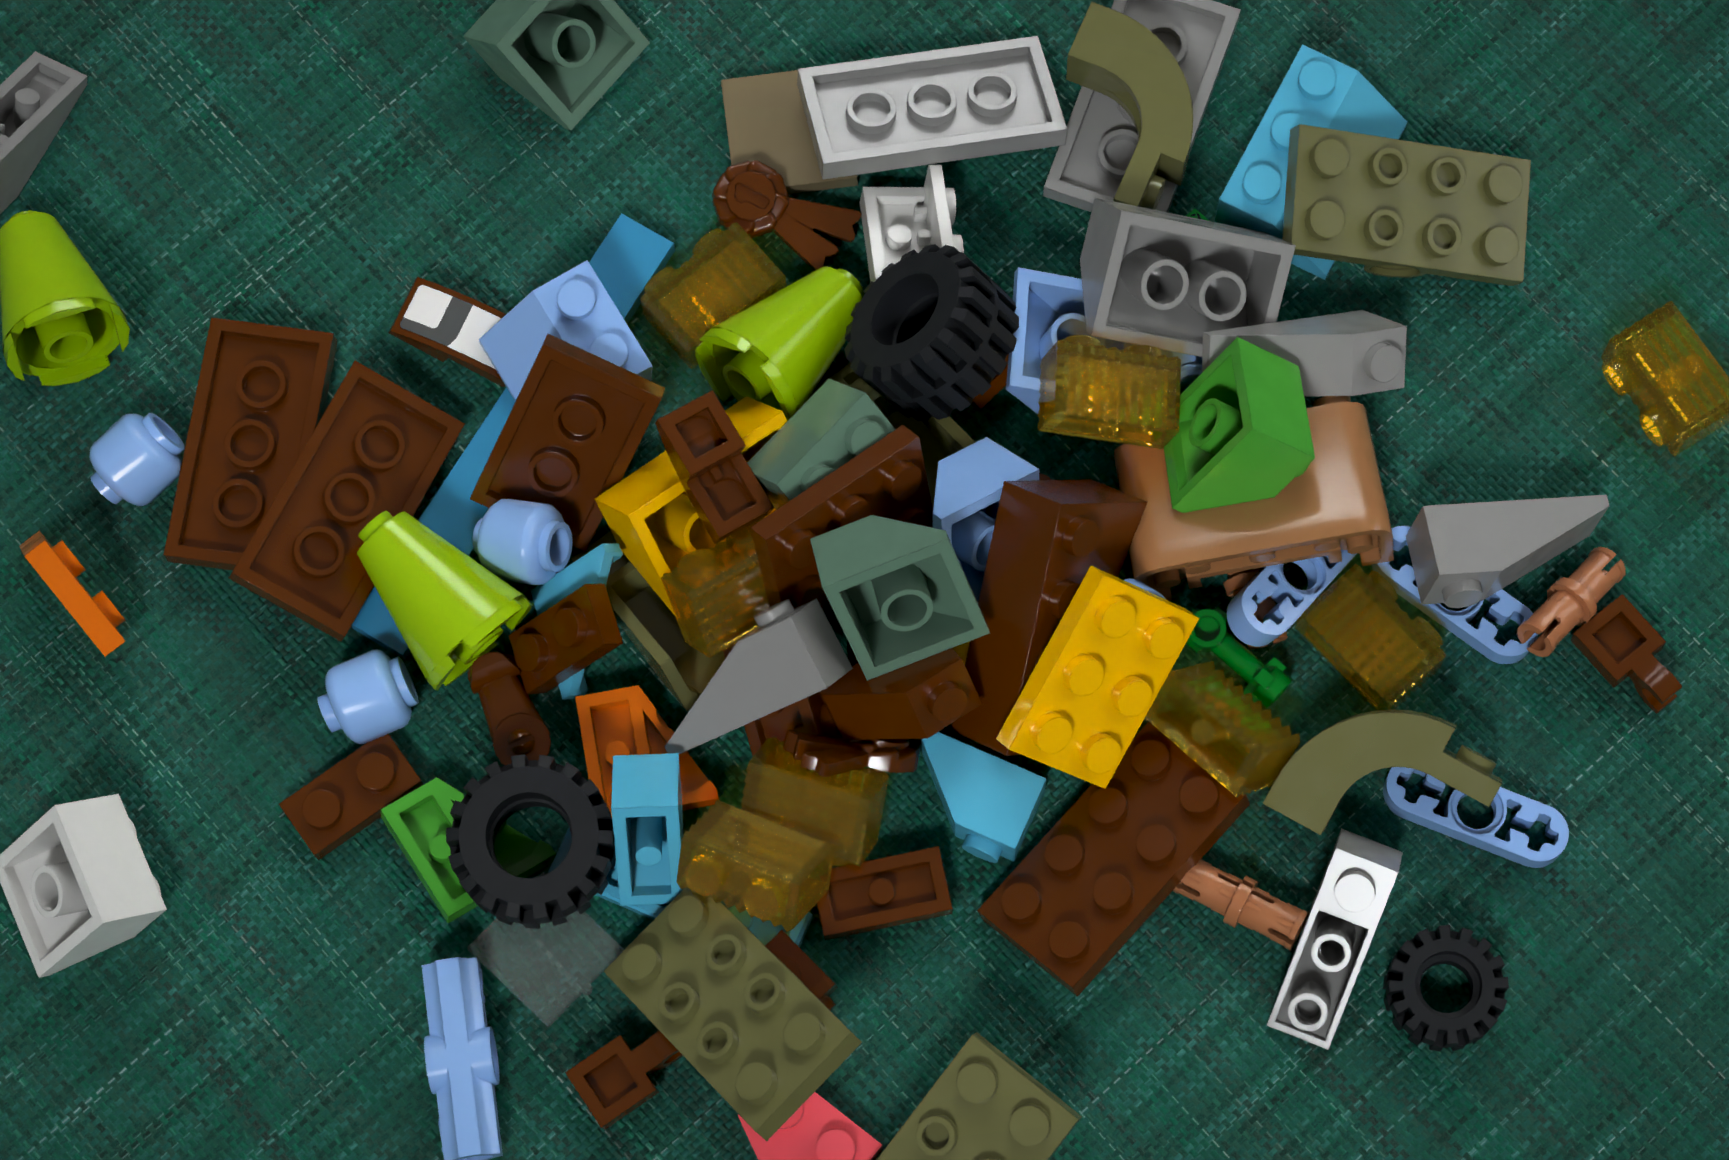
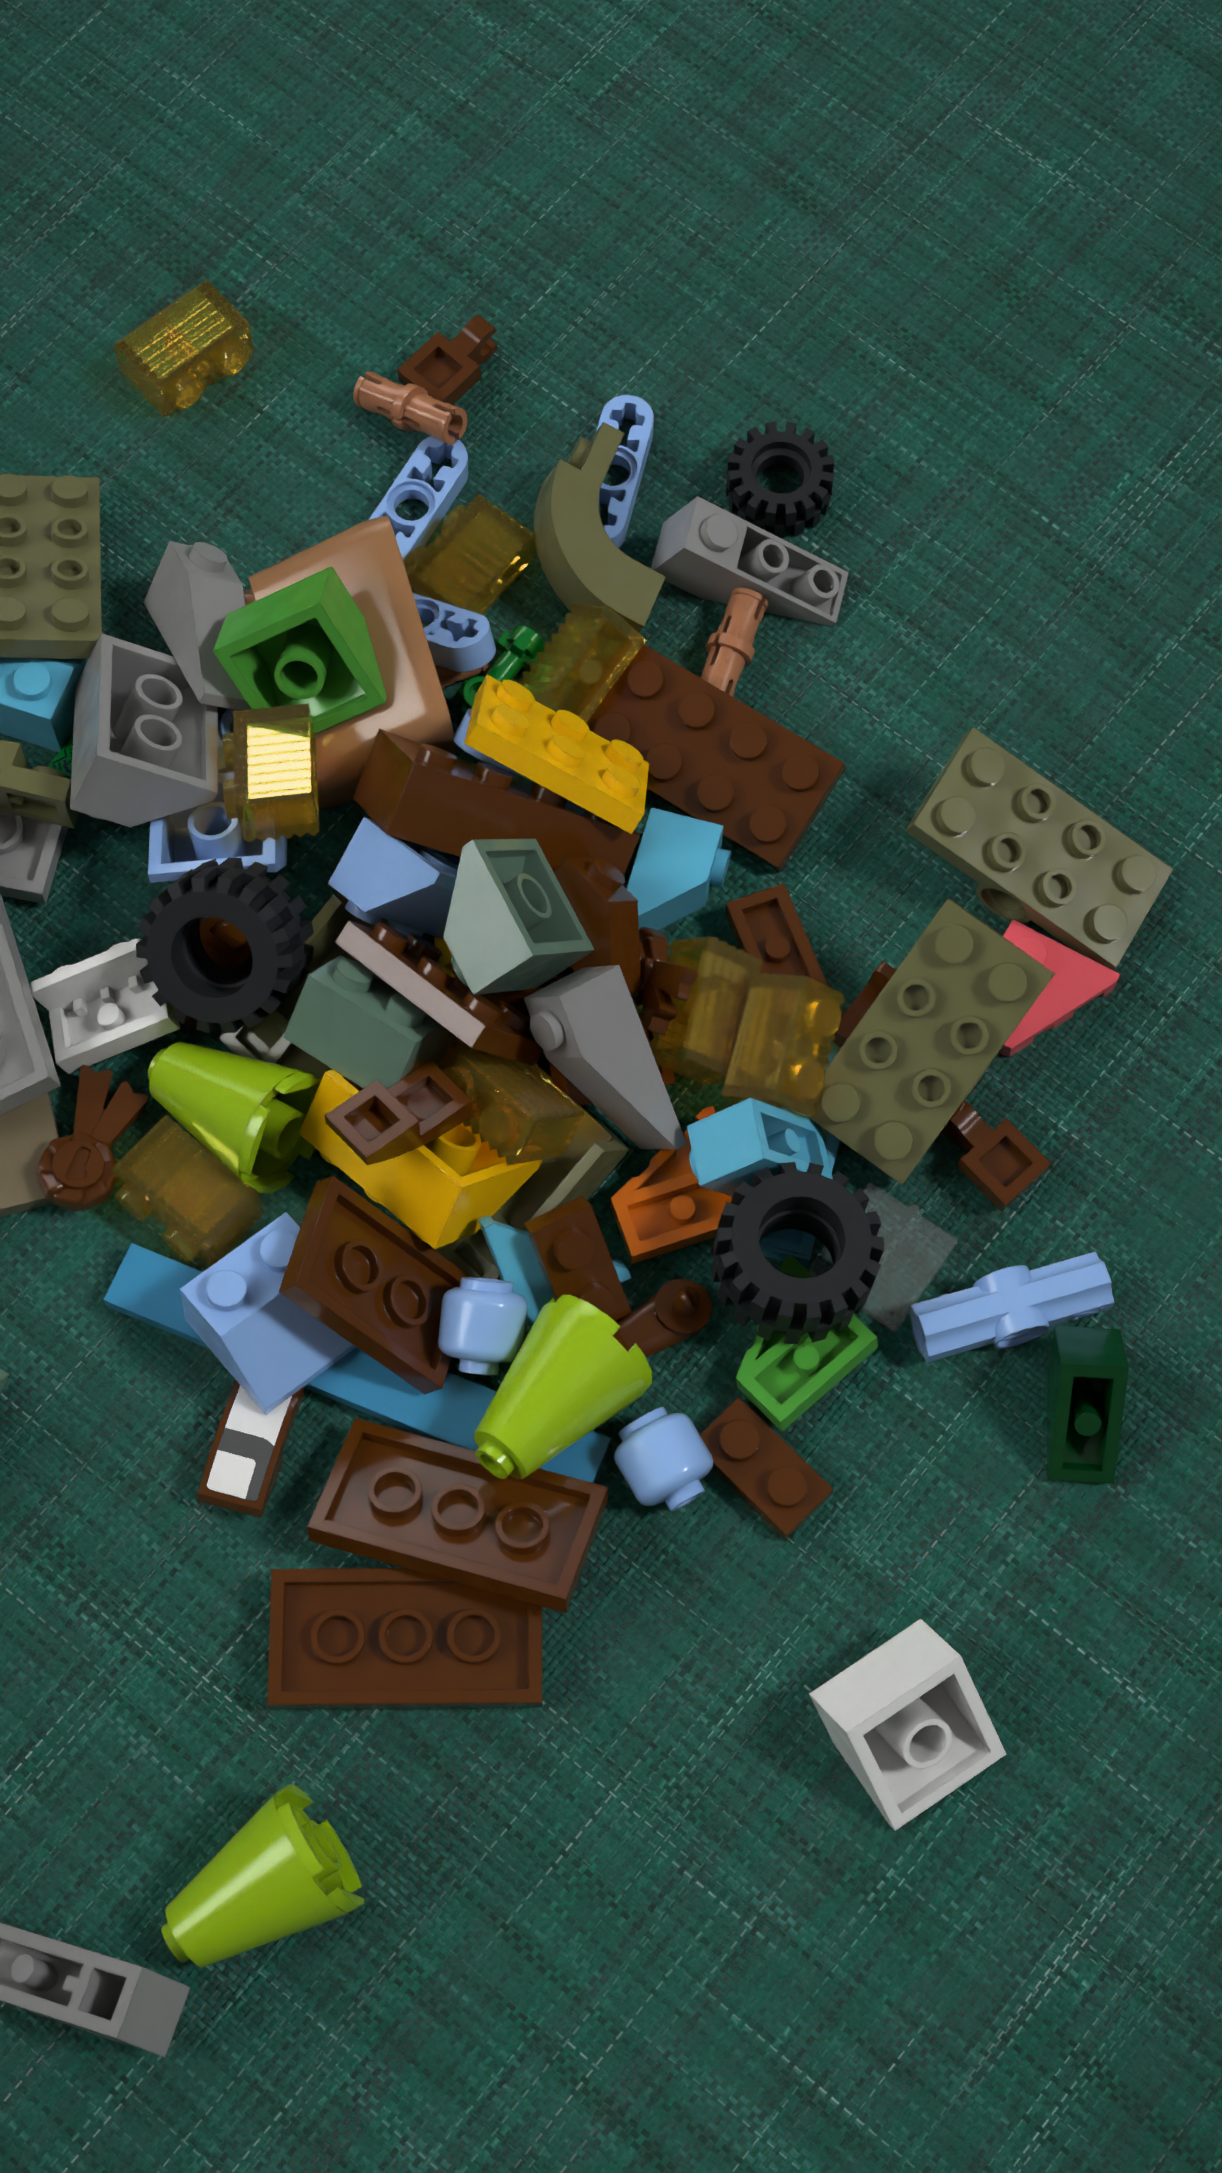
camera: 105 degrees left, 5 degrees down
(60, 571) = (586, 1798): orange wing -> none
(136, 459) = (438, 1755): light blue head -> none
(352, 1112) = (1085, 1403): none -> dark green slope
(1481, 547) = (372, 463): light grey slope -> none

